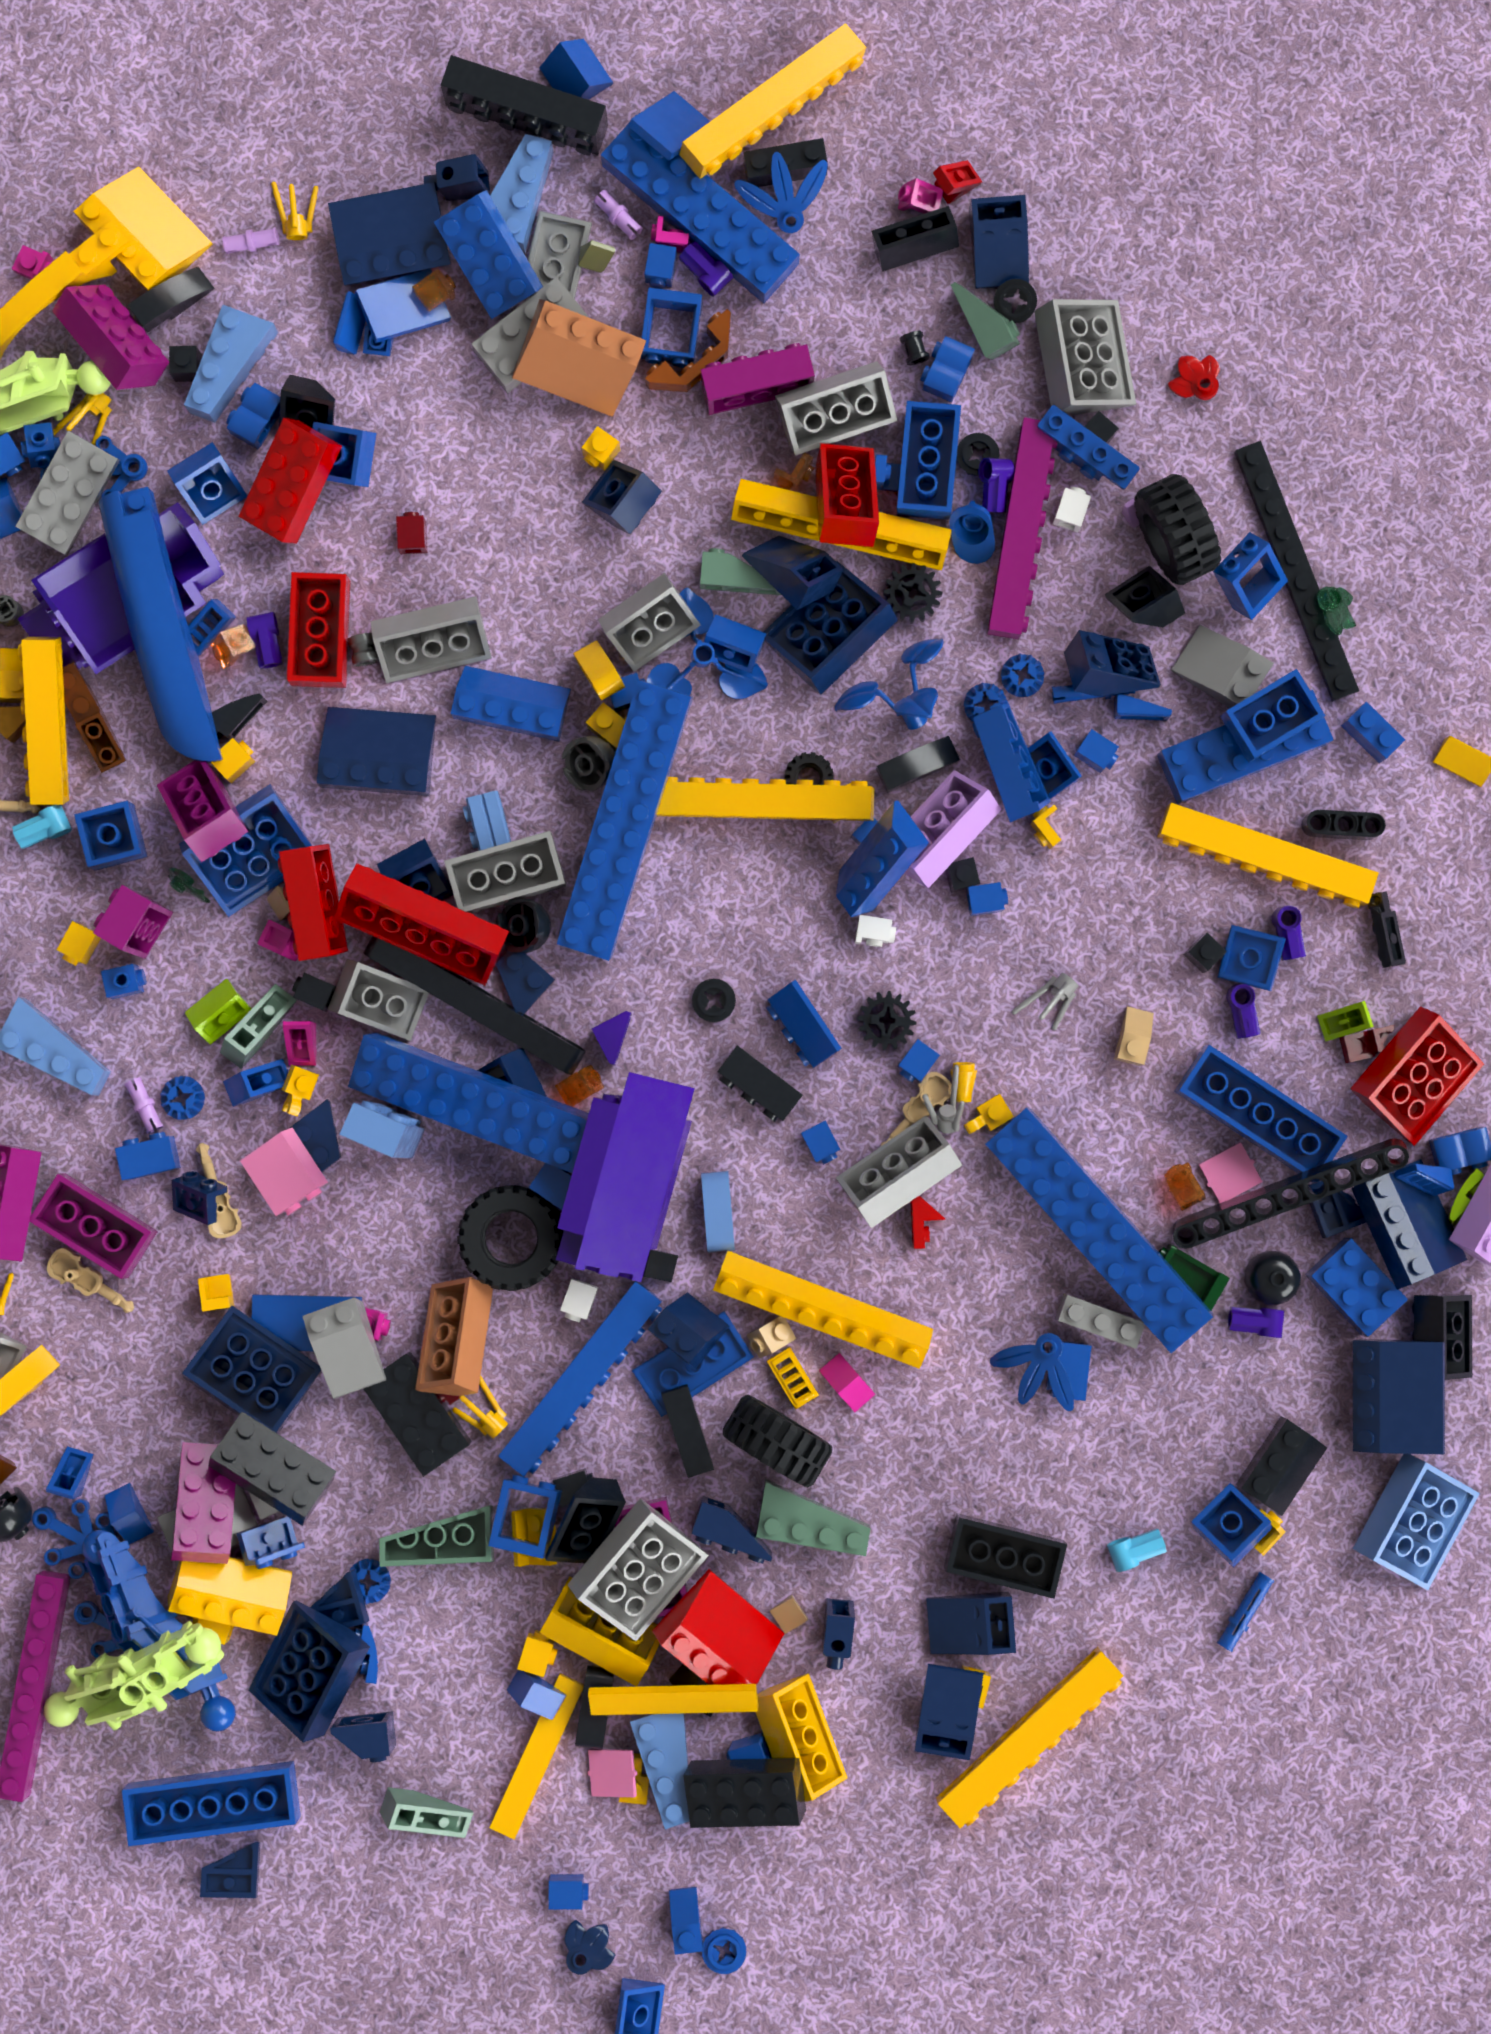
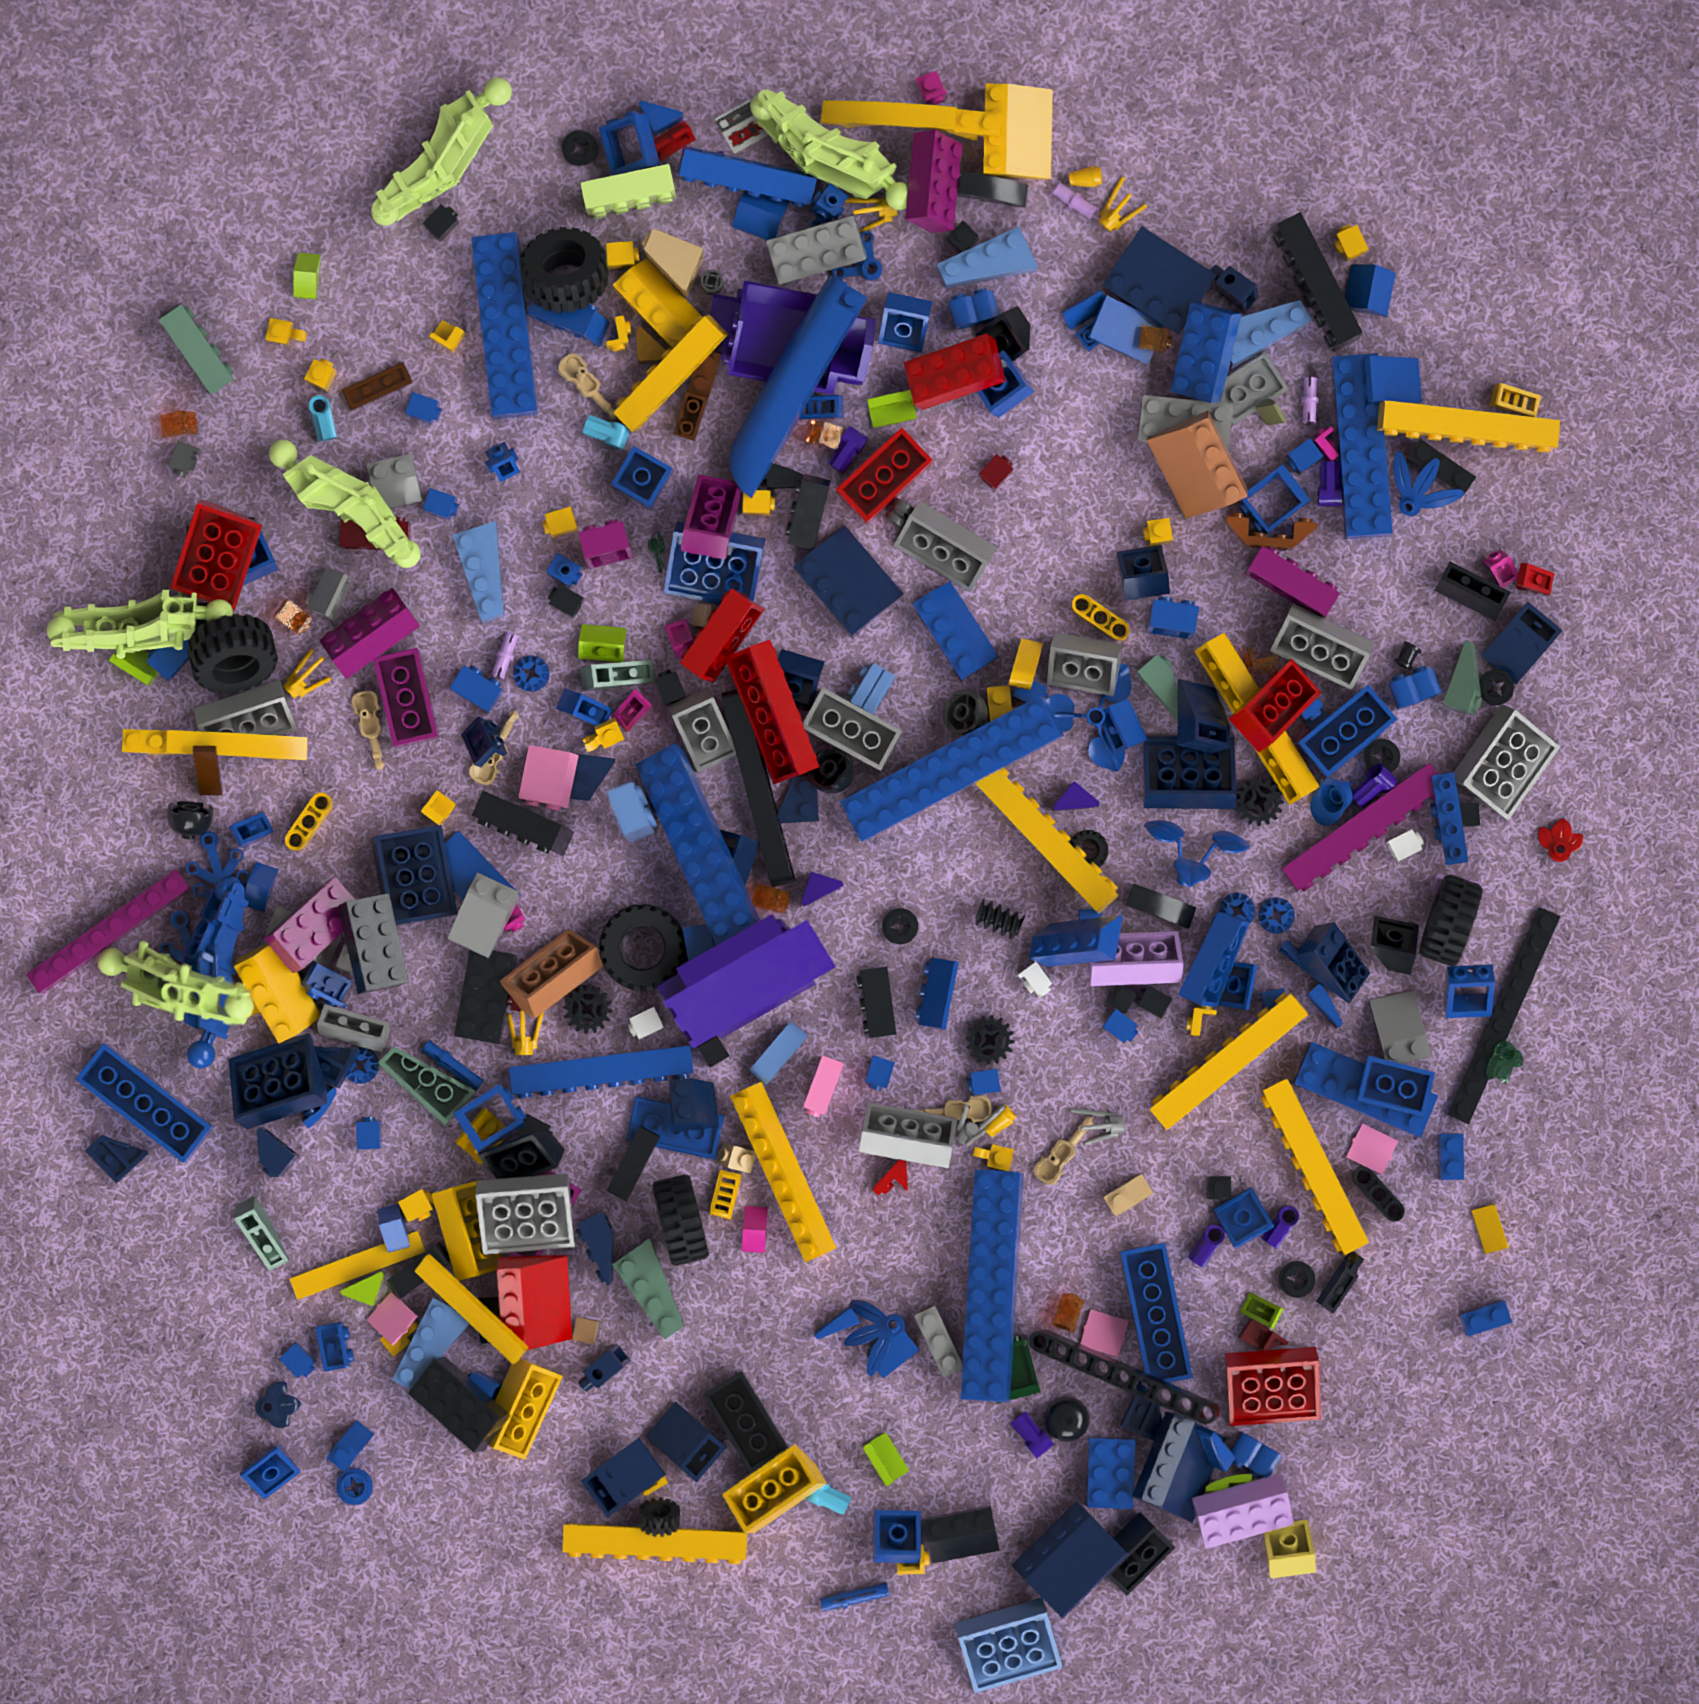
camera: 55 degrees right, 0 degrees up
(109, 1429) = (307, 833): none -> yellow beam
(150, 1006) = (565, 601): none -> black brick
(241, 210) = (1086, 177): none -> yellow cone
(268, 568) = (891, 409): none -> lime panel
(282, 723) = (807, 511): none -> black brick
(301, 1234) = (522, 823): none -> black wedge
(330, 1556) = (354, 1028): none -> light grey brick
(434, 1634) = (369, 1134): none -> blue brick
(450, 1501) = (452, 1065): none -> blue pin
(517, 1324) = (579, 1016): none -> black gear
(520, 48) = (1350, 242): none -> yellow brick
(566, 1771) = (365, 1290): none -> lime slope
(586, 1847) = (334, 1346): none -> blue bracket
(633, 561) = (1111, 619): none -> yellow beam
(686, 506) = (1173, 618): none -> blue brick
(755, 743) = (1075, 798): none -> dark purple slope
(775, 55) = (1496, 402): none -> yellow slope
(785, 1202) = (823, 1086): none -> bright pink brick
(792, 910) = (999, 919): none -> black piece
(992, 850) = (1153, 1001): none -> black brick
(1000, 1387) = (840, 1322): none -> blue slope
(1022, 1720) = (659, 1517): none -> black tyre
(1046, 1079) = (1050, 1168): none -> tan piece
(1087, 1591) = (773, 1489): none -> yellow slope
(1107, 836) = (1228, 1061): none -> yellow brick
(1153, 1466) = (885, 1458): none -> lime panel
(1298, 792) = (1372, 1148): none -> bright pink piece
(1359, 967) = (1305, 1272): none -> black gear

